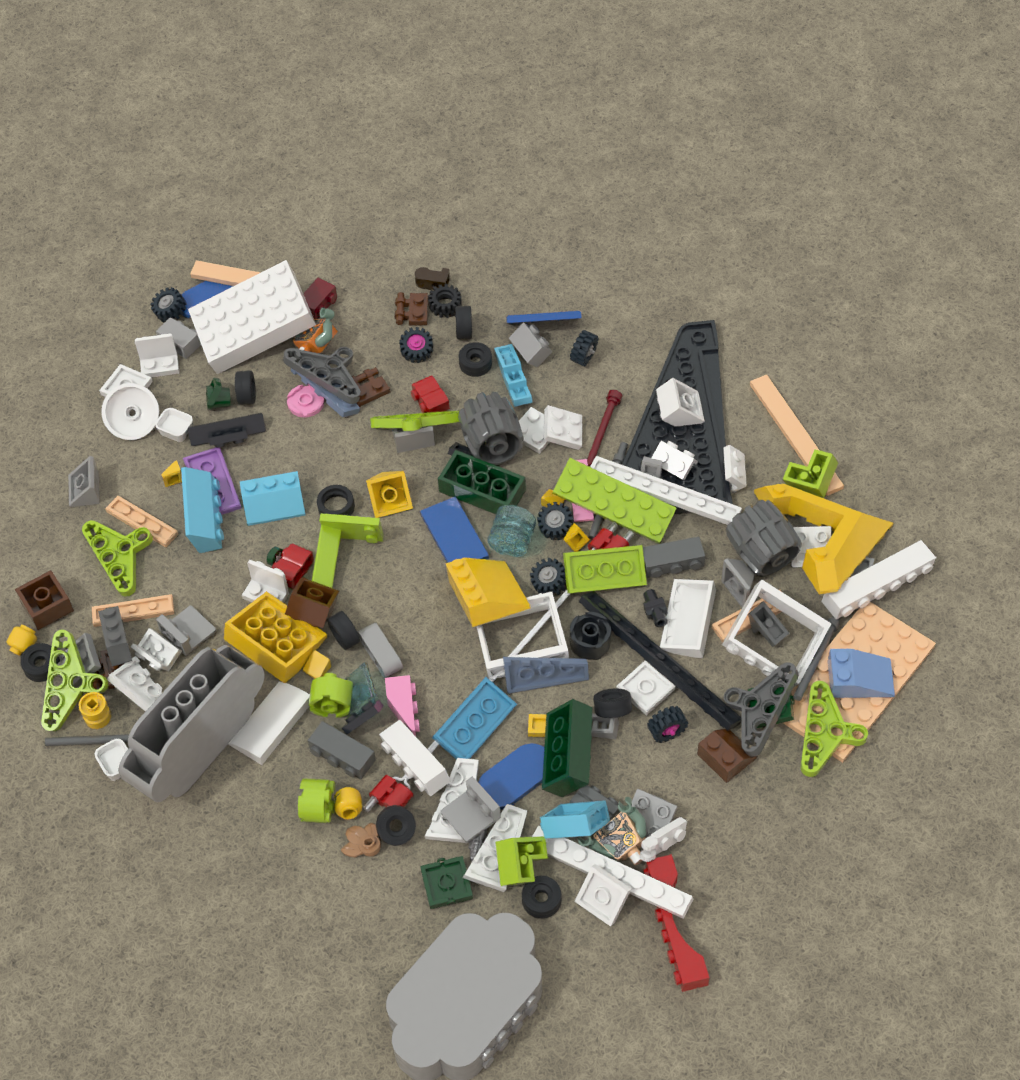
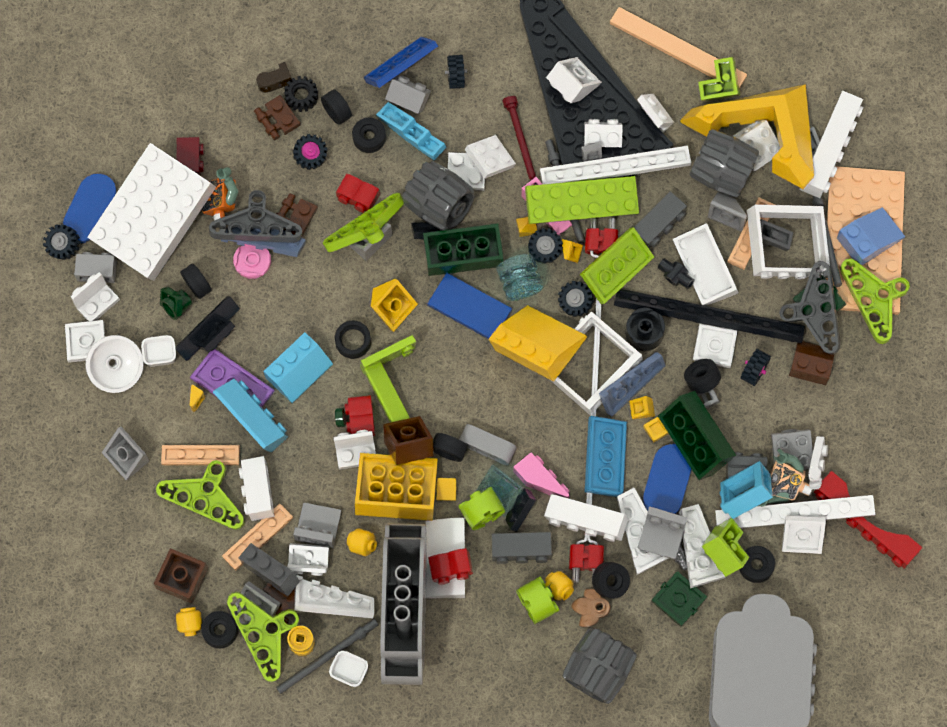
camera: 35 degrees left, 15 degrees up
(161, 570) = (256, 488): none -> white brick
(220, 273) = (90, 182): light nougat tile -> none
(264, 724) = (450, 566): none -> red brick
(323, 888) = (599, 665): none -> dark grey wheel
(541, 701) = (642, 407): none -> yellow slope

